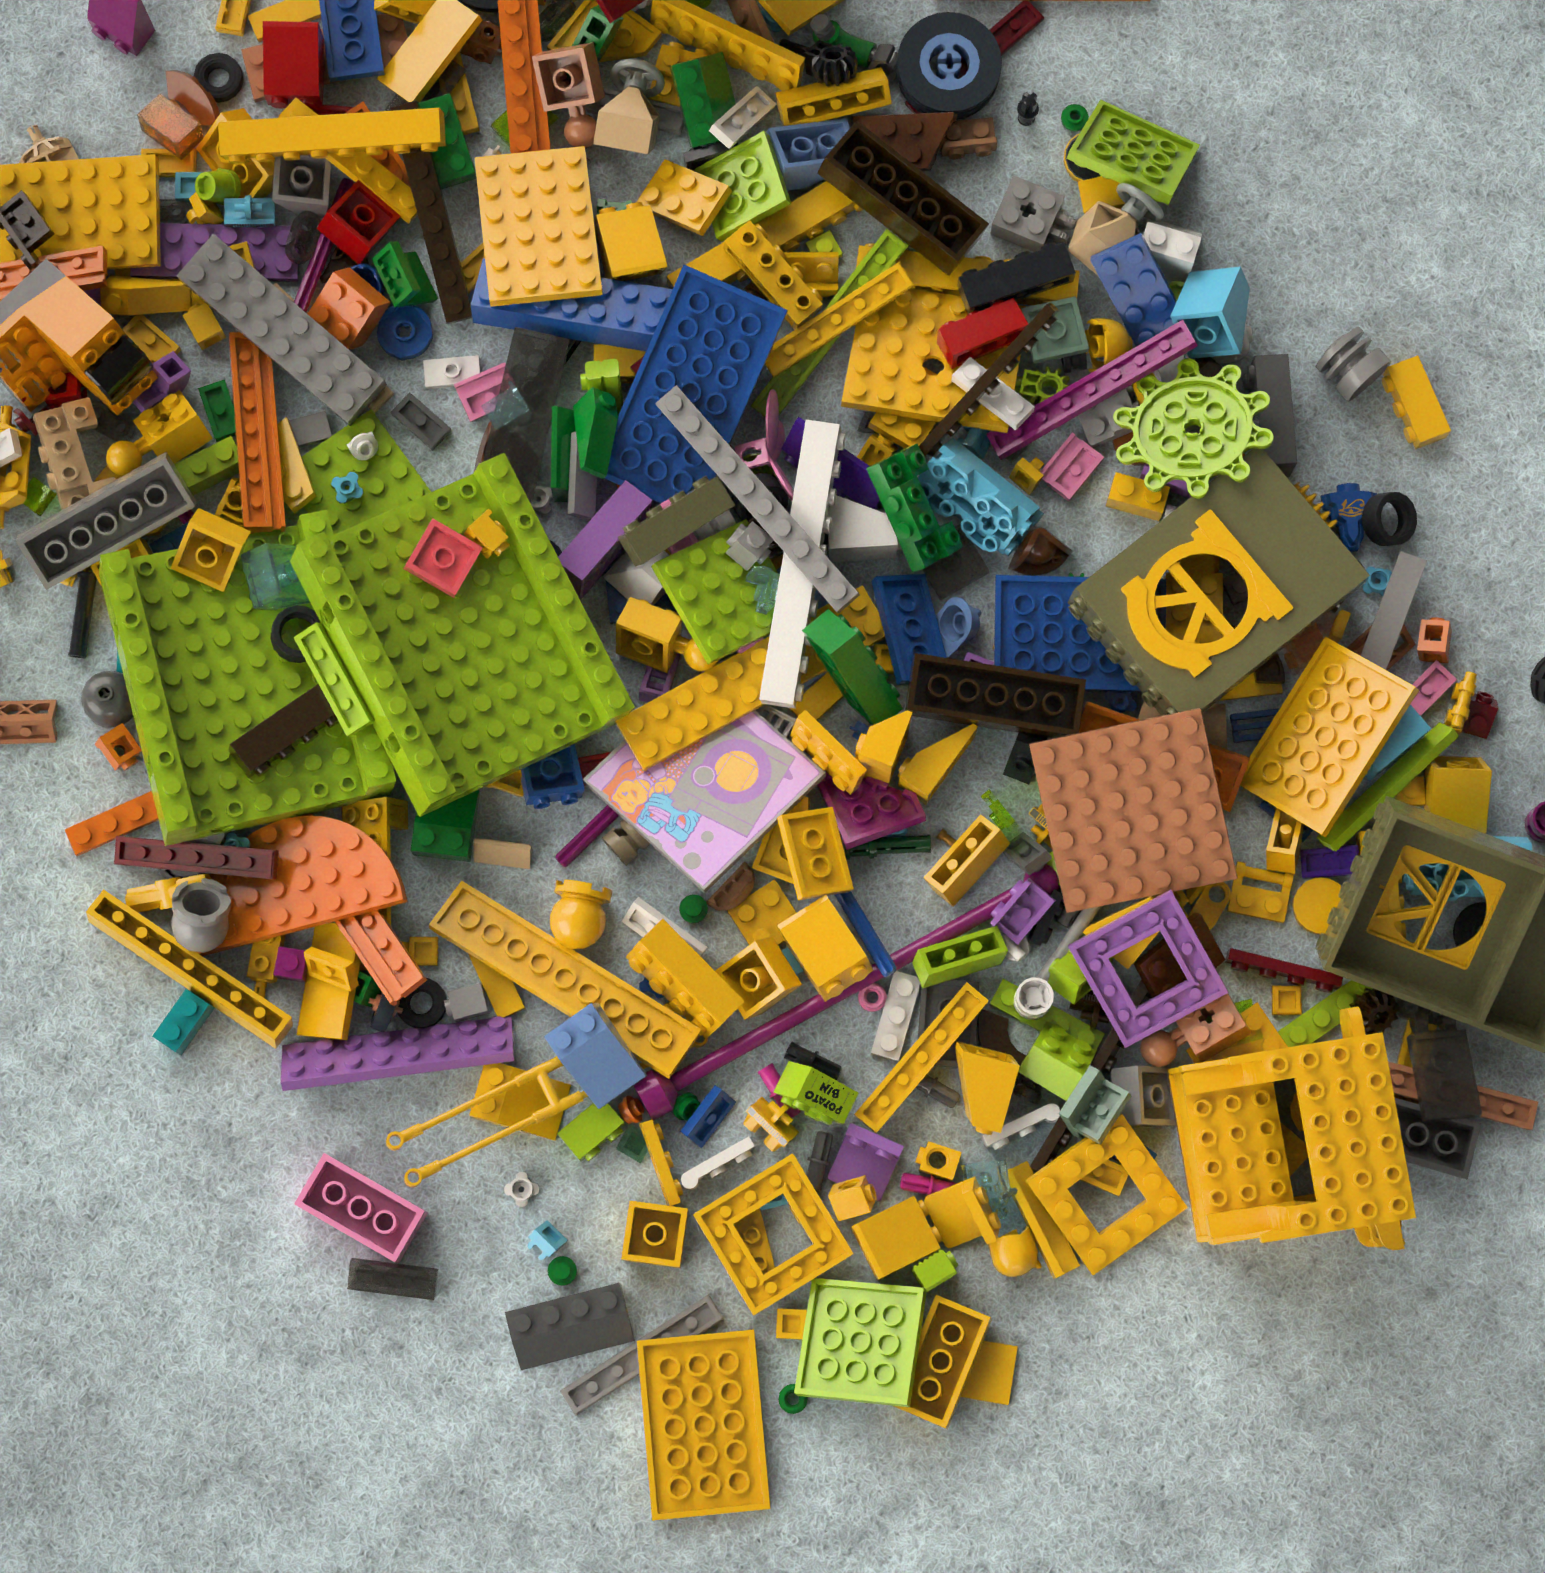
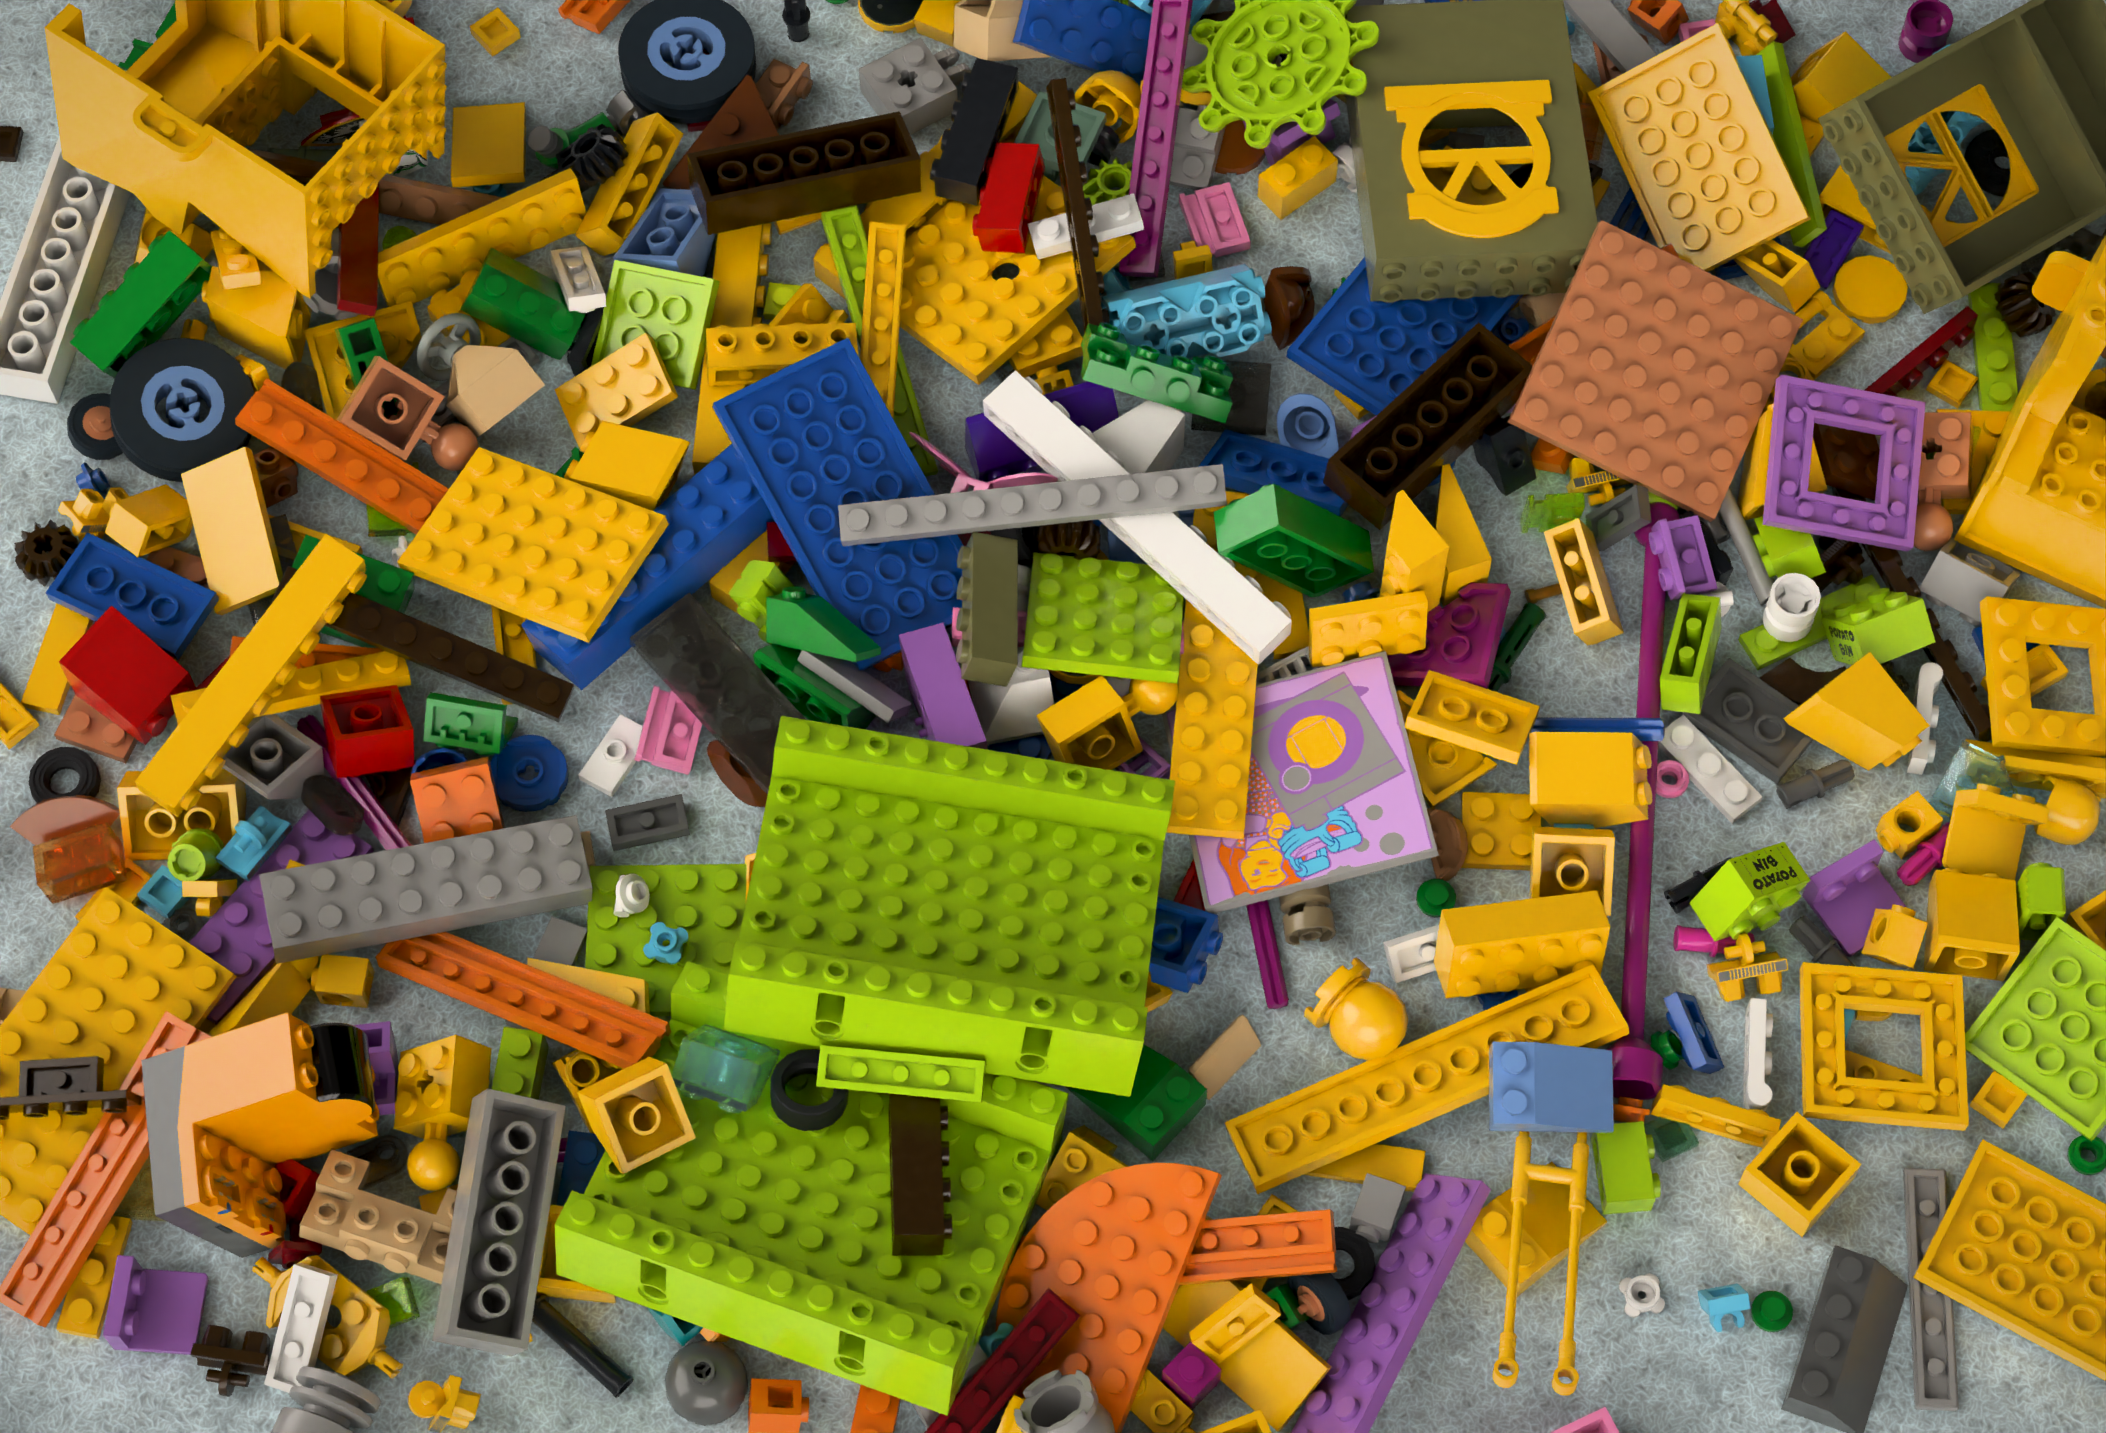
camera: 55 degrees left, 15 degrees down
(219, 409) = (443, 1021): green plate -> none
(443, 558) = (853, 856): coral plate -> none
(488, 534) = (861, 798): yellow brick -> none
(505, 407) = (715, 699): clear light blue bracket -> none
(749, 545) = (1074, 555): light grey brick -> none
(766, 589) = (1136, 568): clear light blue bracket -> none
(921, 1057) = (1780, 763): yellow plate -> none
(1093, 1106) = (1964, 615): sand green bracket -> none

